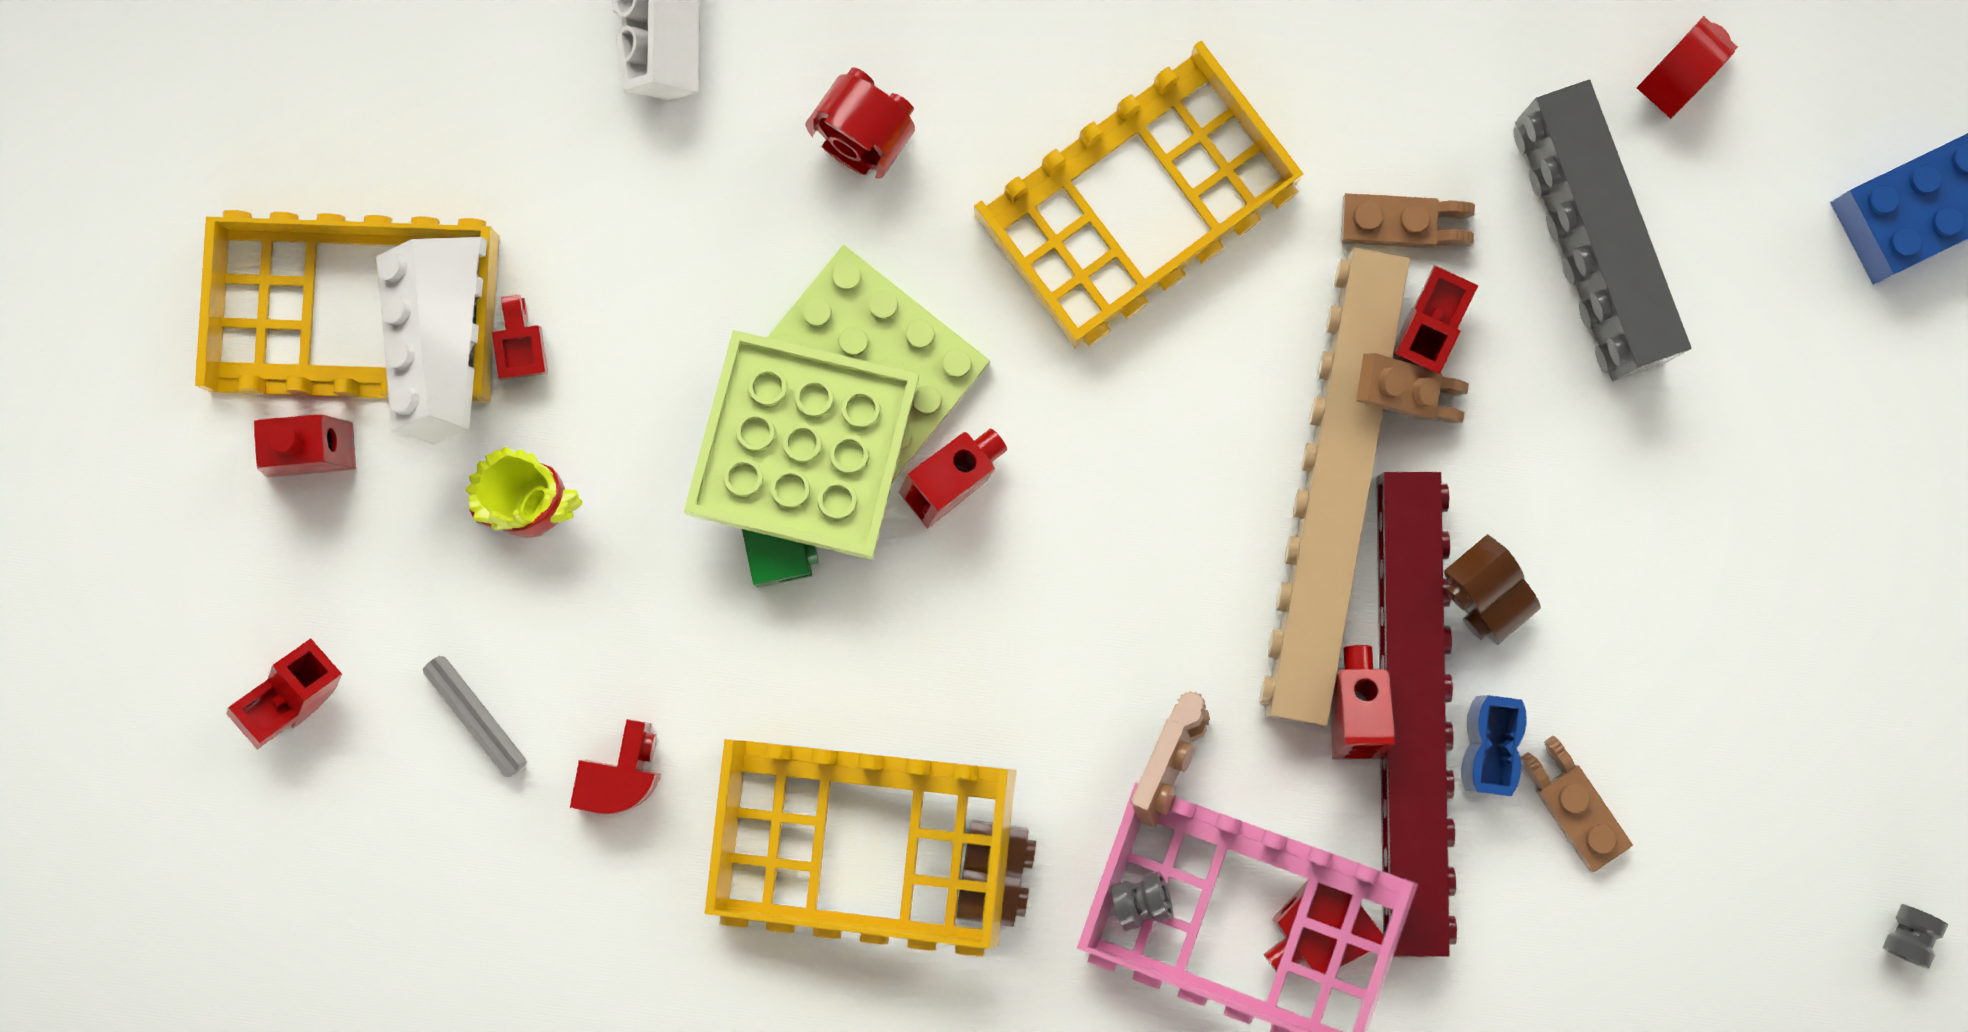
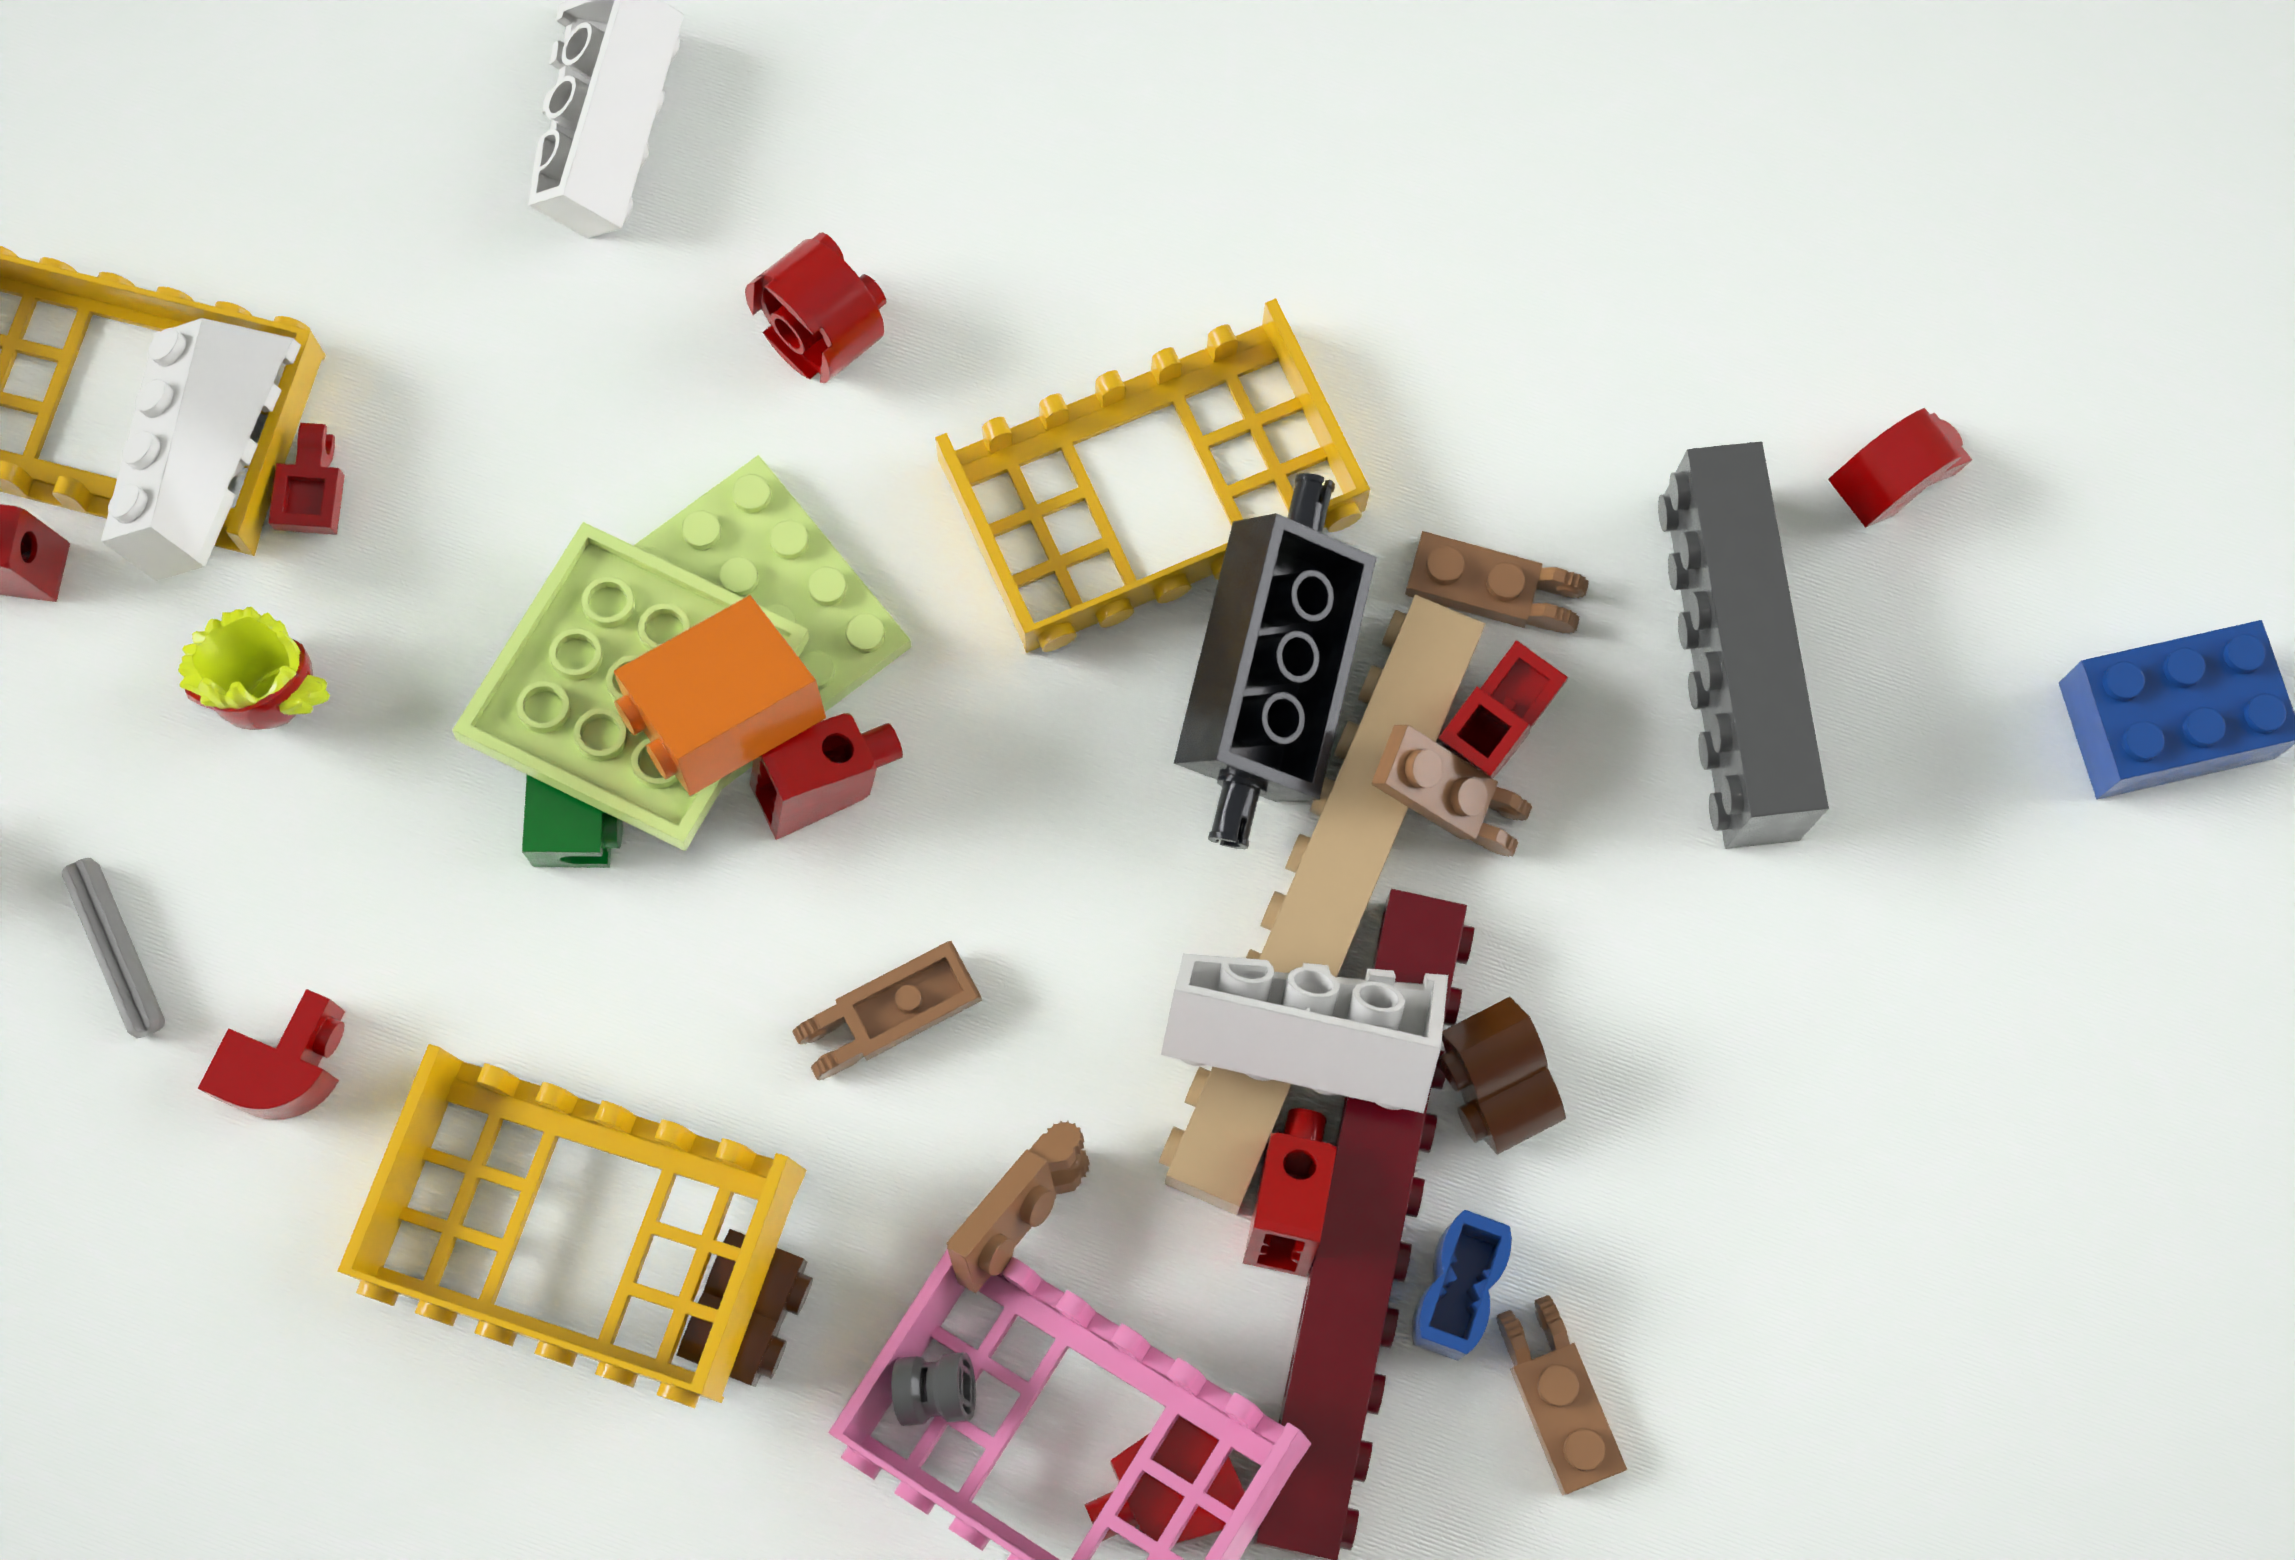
camera: 10 degrees right, 10 degrees down
(872, 445) = (718, 696): none -> orange brick
(1045, 634) = (892, 1008): none -> medium nougat hinge
(1264, 320) = (1275, 660): none -> black brick
(1354, 590) = (1310, 1028): none -> white wedge

